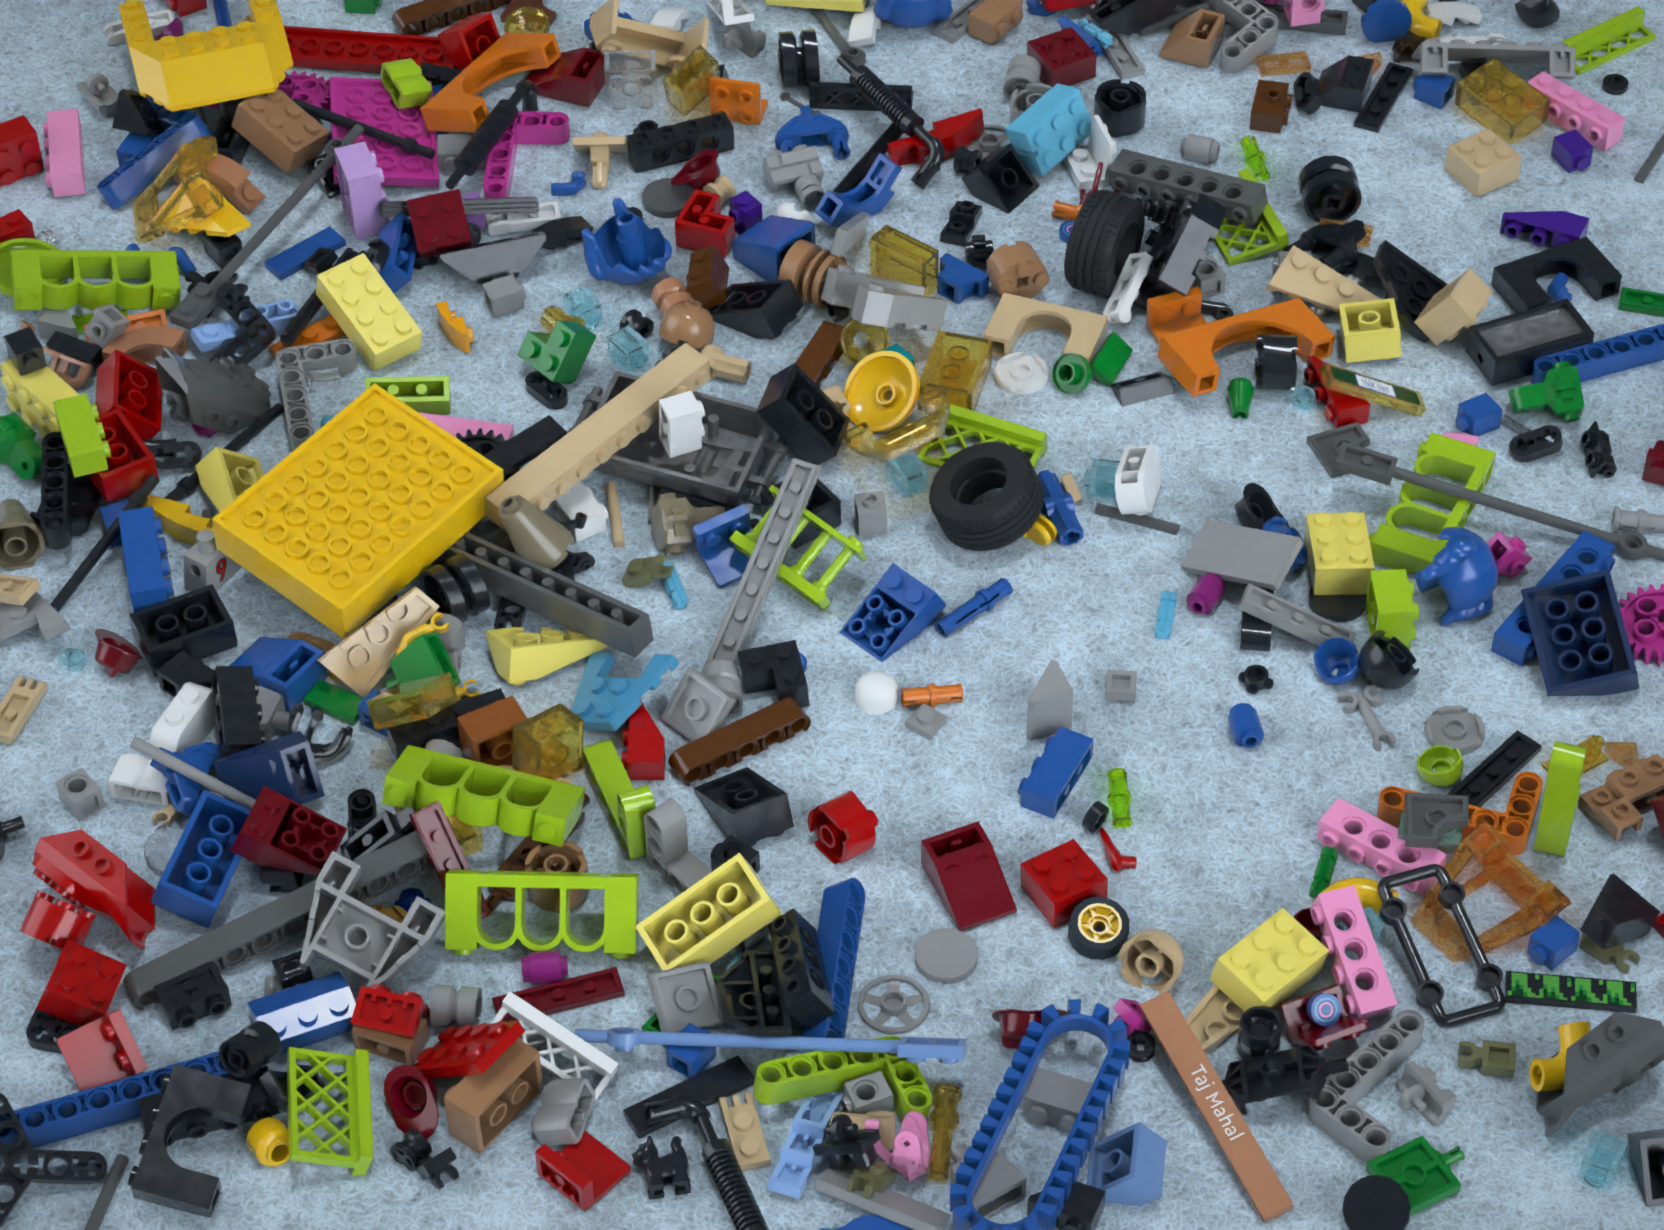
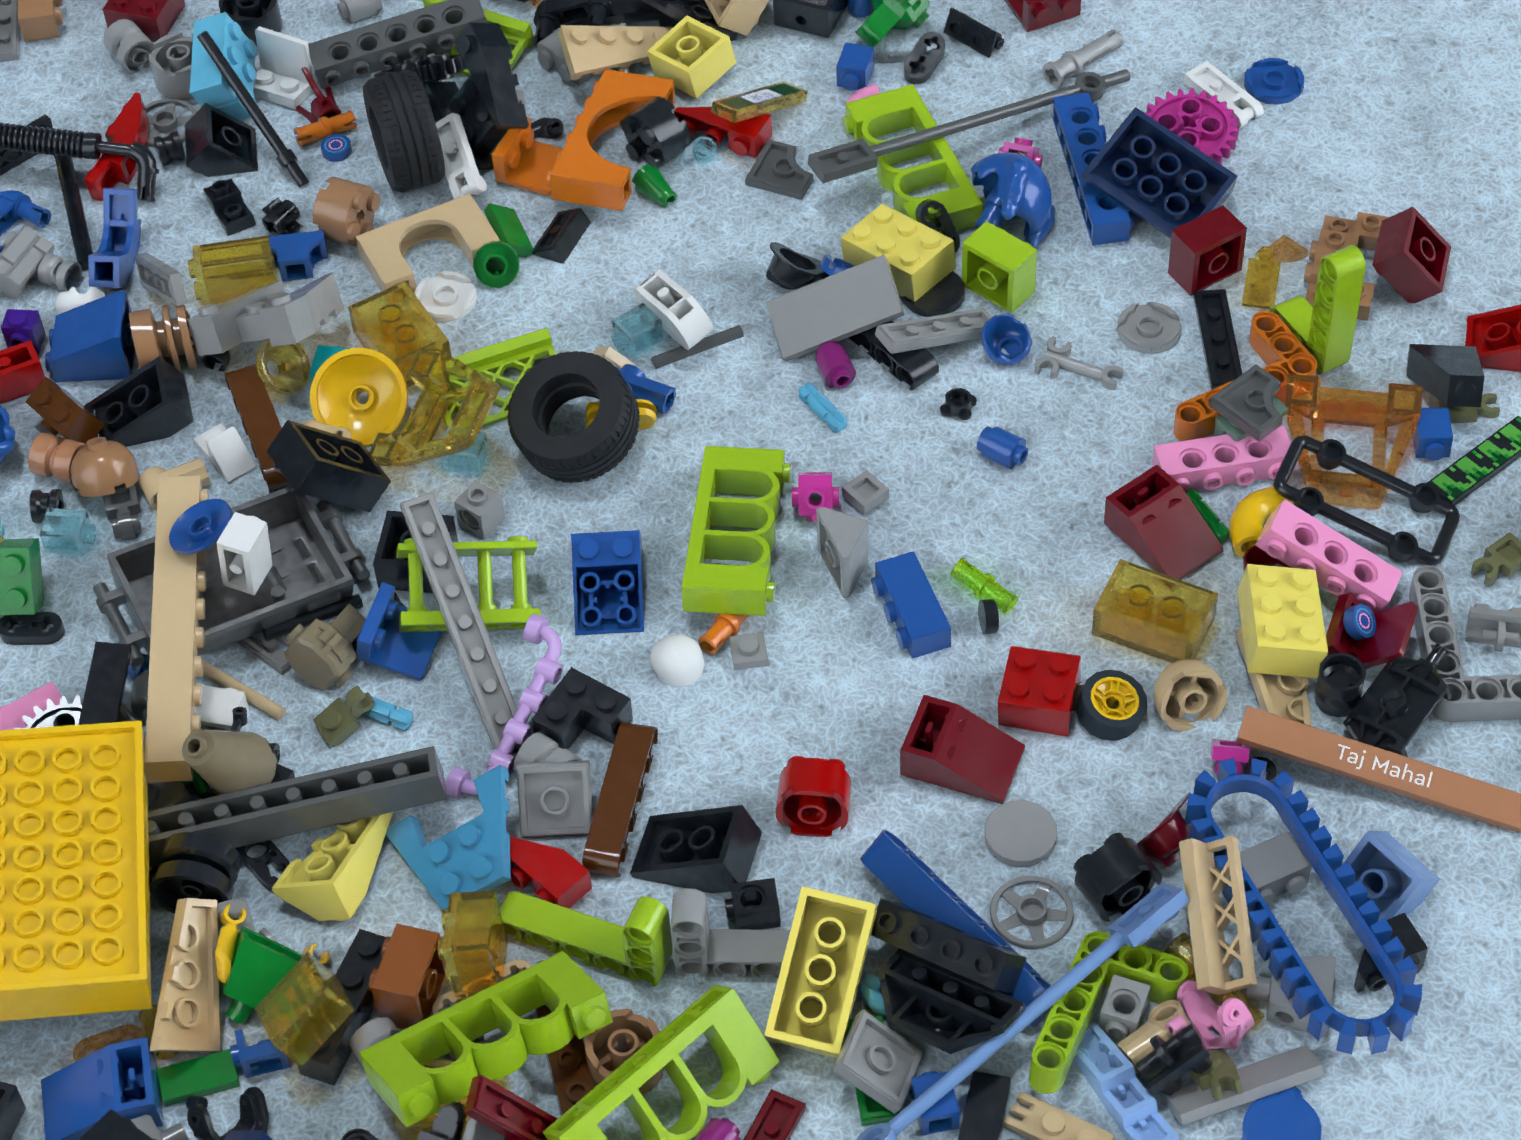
camera: 45 degrees left, 5 degrees up
(667, 386) = (200, 526): none -> blue dish
(771, 362) = (225, 452): none -> white slope
(798, 601) = (530, 701): none -> lavender bar
(952, 1105) = (1205, 915): none -> tan fence
(958, 1014) = (1115, 876): none -> black brick
(961, 680) = (734, 587): none -> lime fence
(983, 600) = (665, 512): blue pin -> none
(1028, 214) = (285, 156): none -> black bar
(1082, 659) = (814, 483): none -> dark pink brick
(1113, 854) = (1036, 636): red bar -> none
(1198, 897) = (1154, 613): none -> clear yellow brick
(1280, 851) = (1161, 524): none -> dark red slope
(1386, 662) = (1046, 312): black cylinder -> none
(1393, 551) = (942, 218): none -> black beam
(1445, 760) = (1182, 356): lime hair -> none
(1551, 706) = (1207, 250): none -> dark red brick

